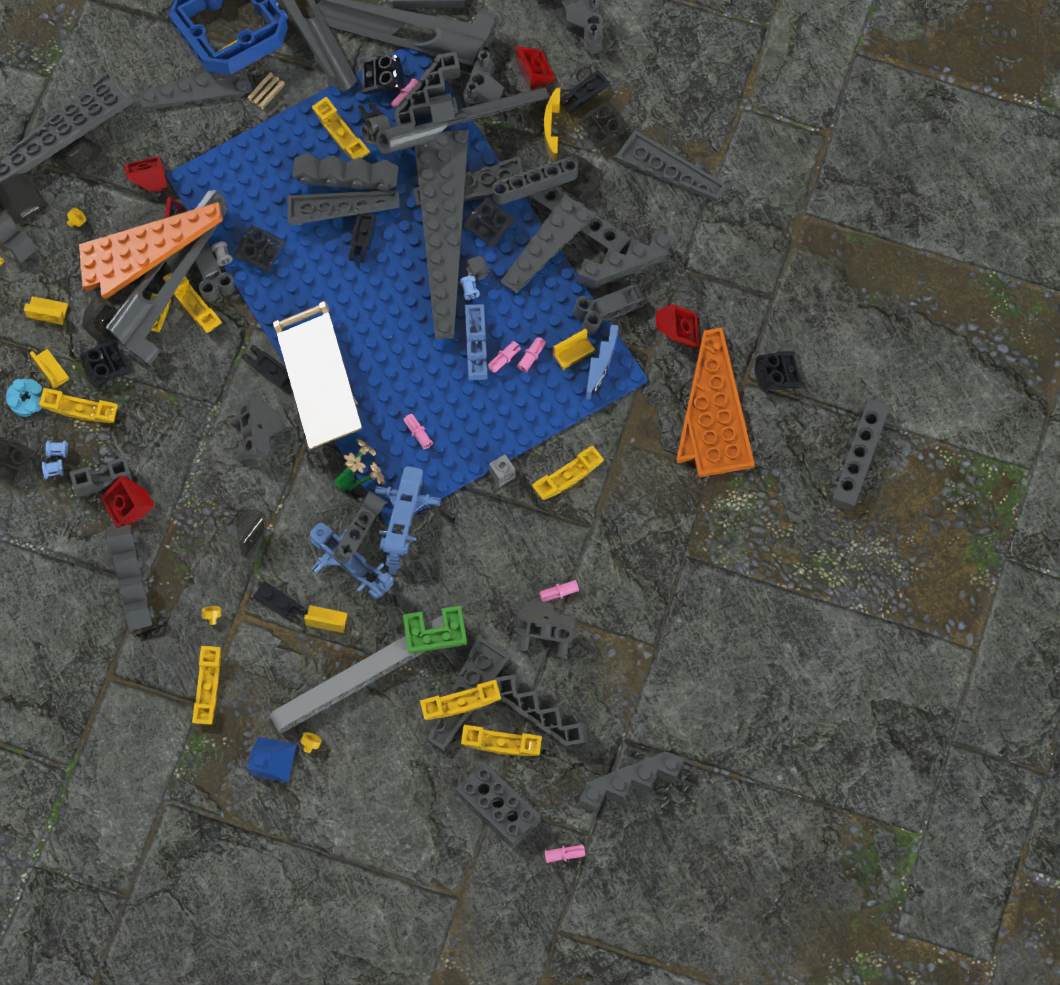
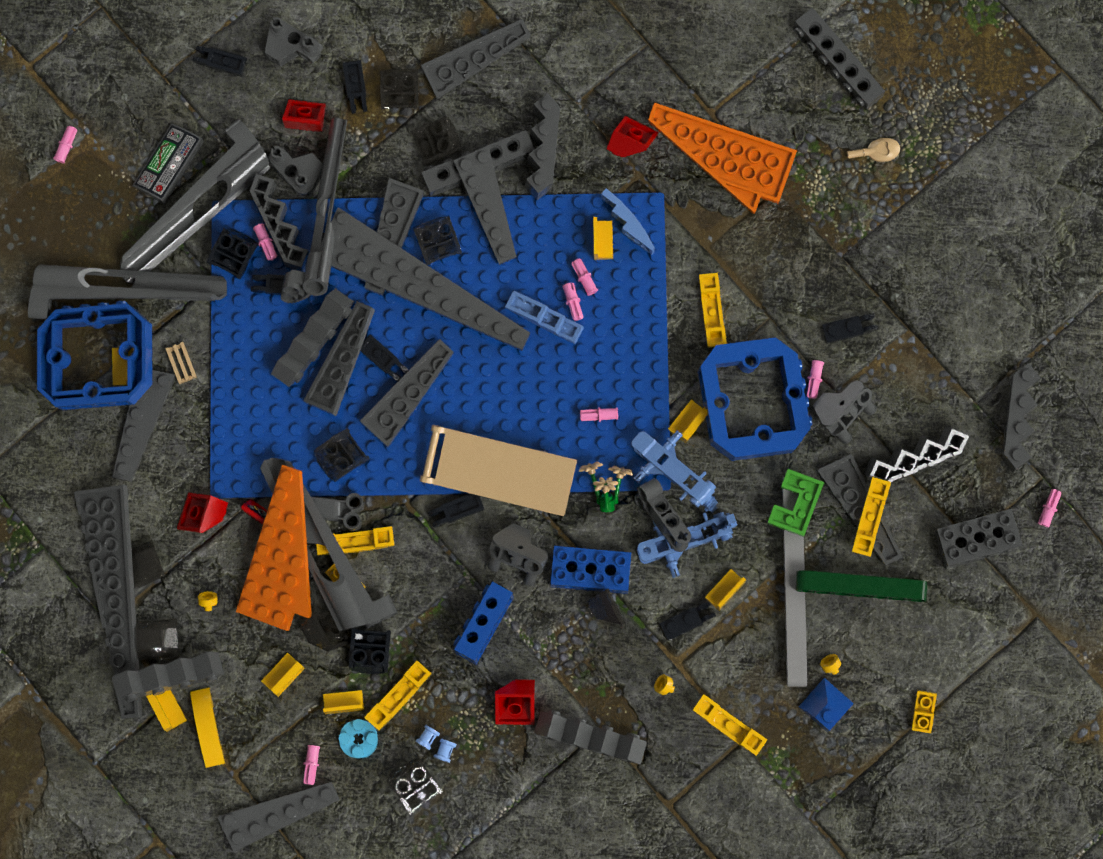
camera: 55 degrees left, 10 degrees up
(89, 481) = (480, 712): dark grey arch -> none
(164, 438) = (491, 594): none -> blue brick
(221, 253) = (325, 489): light grey bush -> none
(282, 487) = (584, 558): none -> blue brick
(314, 845) = (924, 711): none -> yellow slope
(333, 270) = (399, 403): none -> dark grey wing
(339, 130) = (267, 320): yellow slope -> none
(394, 727) = (861, 586): none -> dark green beam
(443, 107) = (307, 216): dark grey arch -> none
(458, 509) = (689, 420): none -> yellow panel
(469, 287) = (489, 293): light blue bush -> none
(477, 267) = (475, 276): dark grey plate -> none
(501, 742) = (923, 503): yellow slope -> none
(502, 470) = (677, 363): light grey brick -> none
(529, 187) = (424, 169): dark grey beam -> none
(539, 512) = (752, 446): none -> blue panel
(552, 107) = (390, 144): yellow slope -> none
(607, 307) = (578, 189): dark grey piece -> none
(622, 594) = (847, 328): none -> black hinge
(777, 371) = (722, 81): black slope -> none
(800, 534) = (879, 150): none -> tan piece

